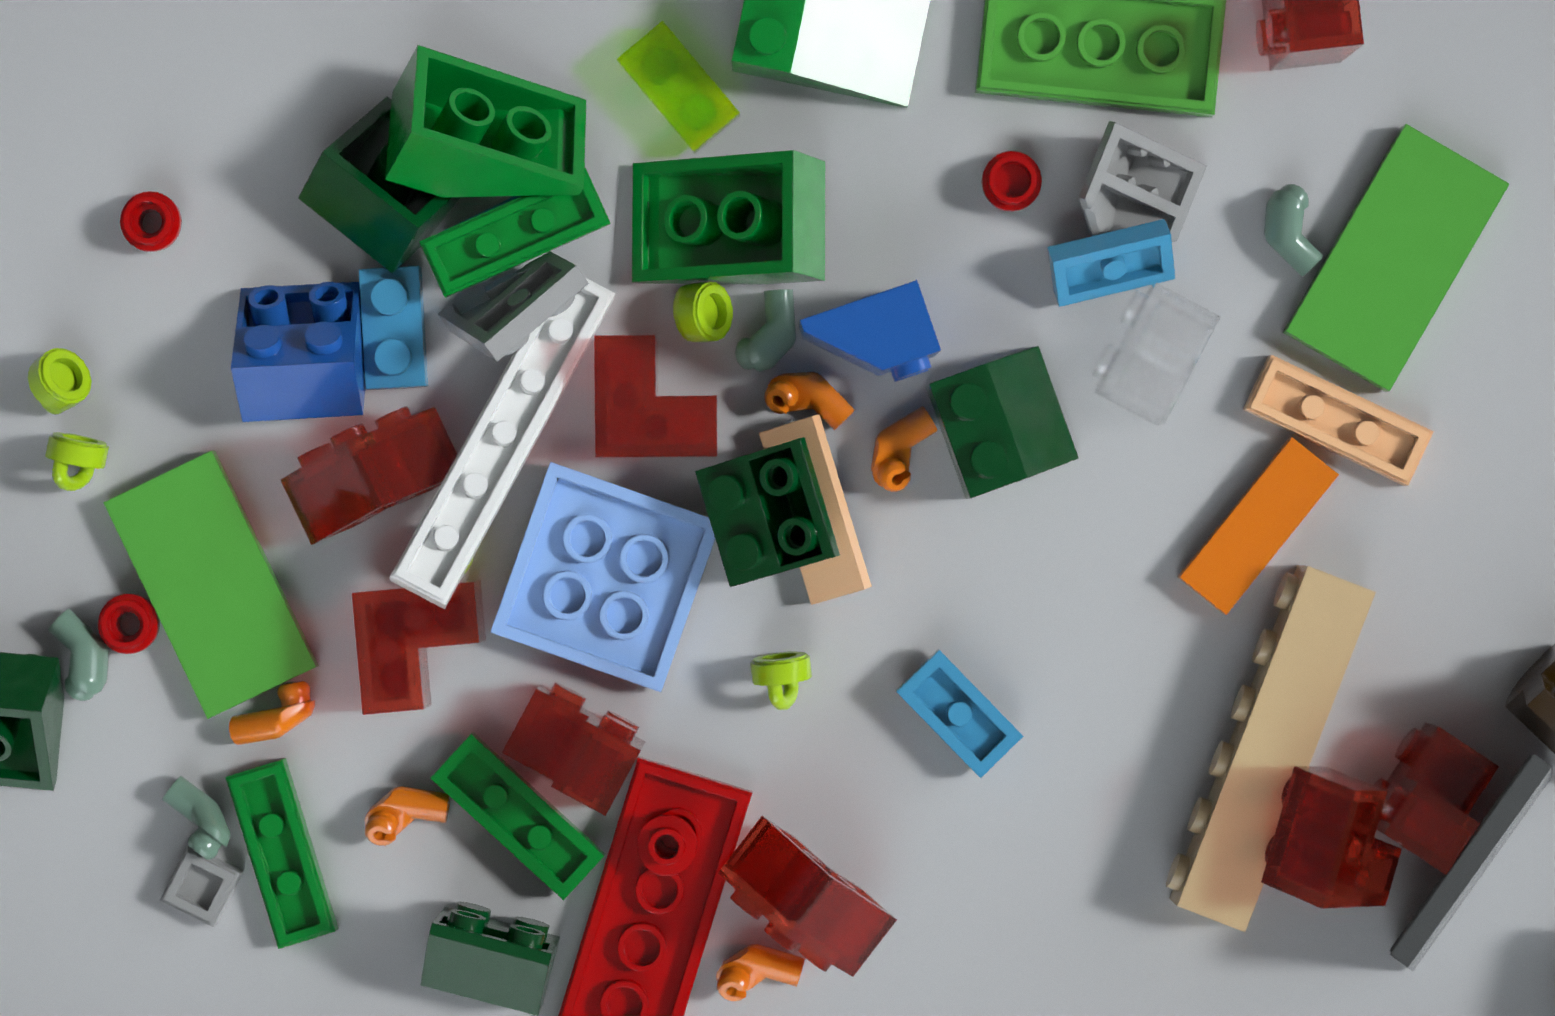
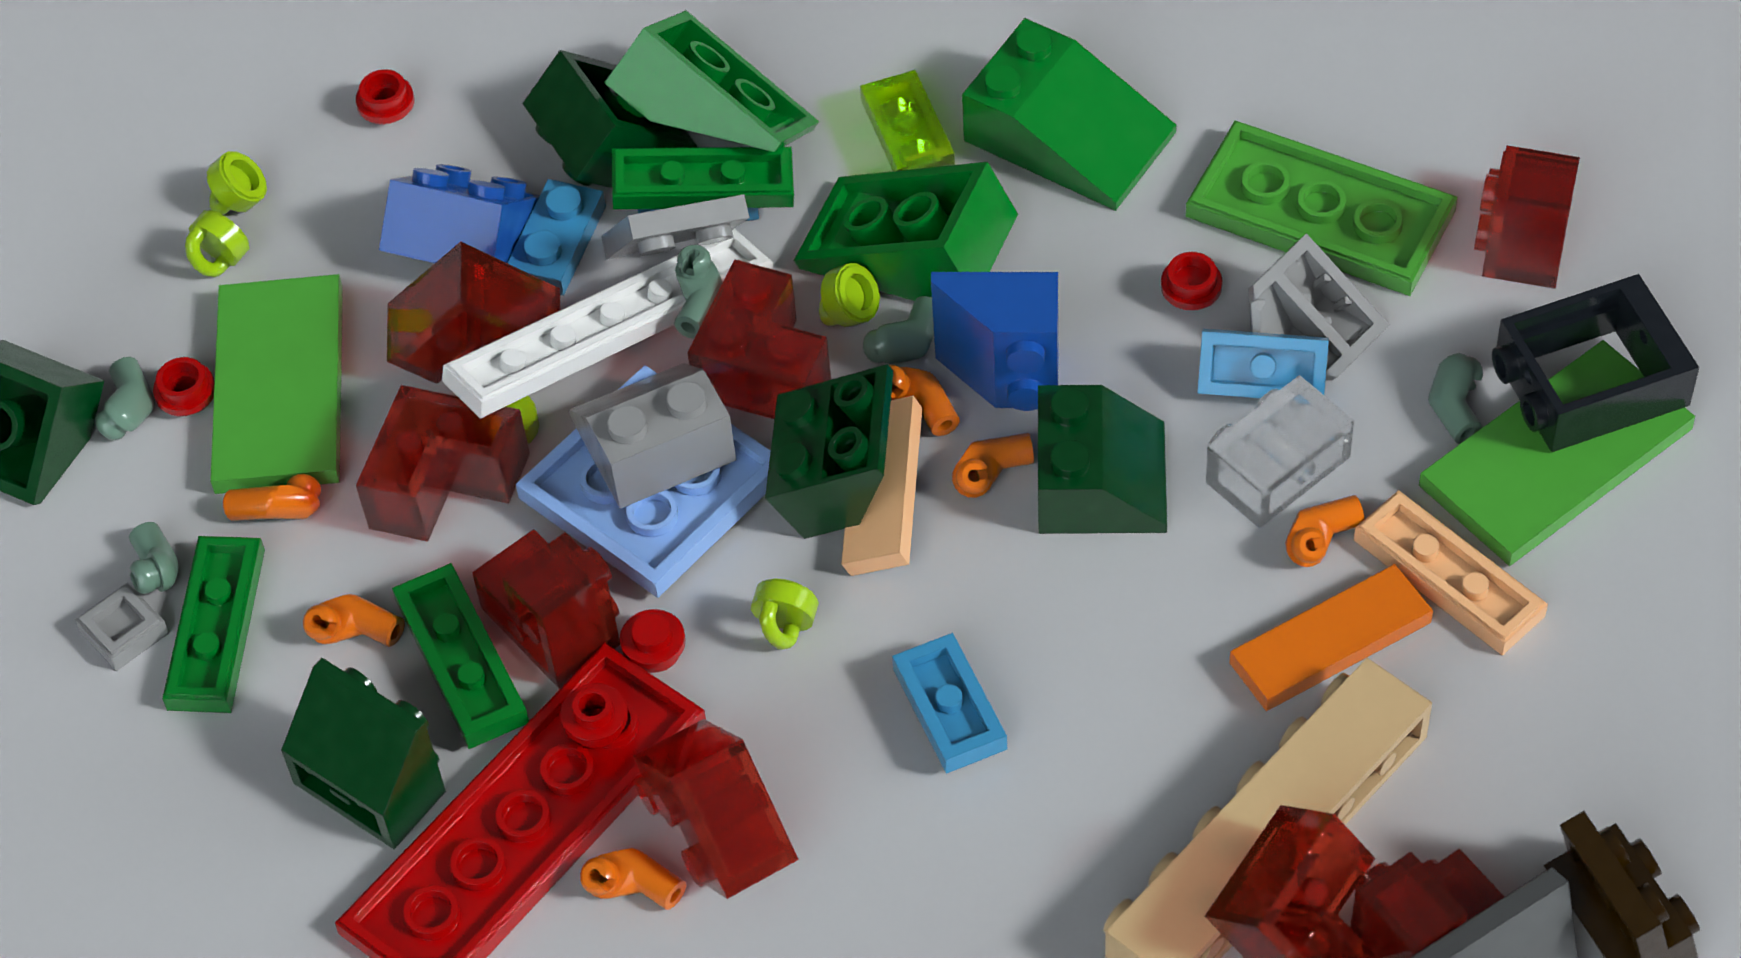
camera: 25 degrees right, 35 degrees down
(575, 375) = (699, 285): none -> sand green arm
(591, 542) = (656, 433): none -> light grey slope
(677, 738) = (653, 639): none -> red plate
(1208, 419) = (1315, 527): none -> orange arm
(1461, 137) = (1646, 334): none -> black window

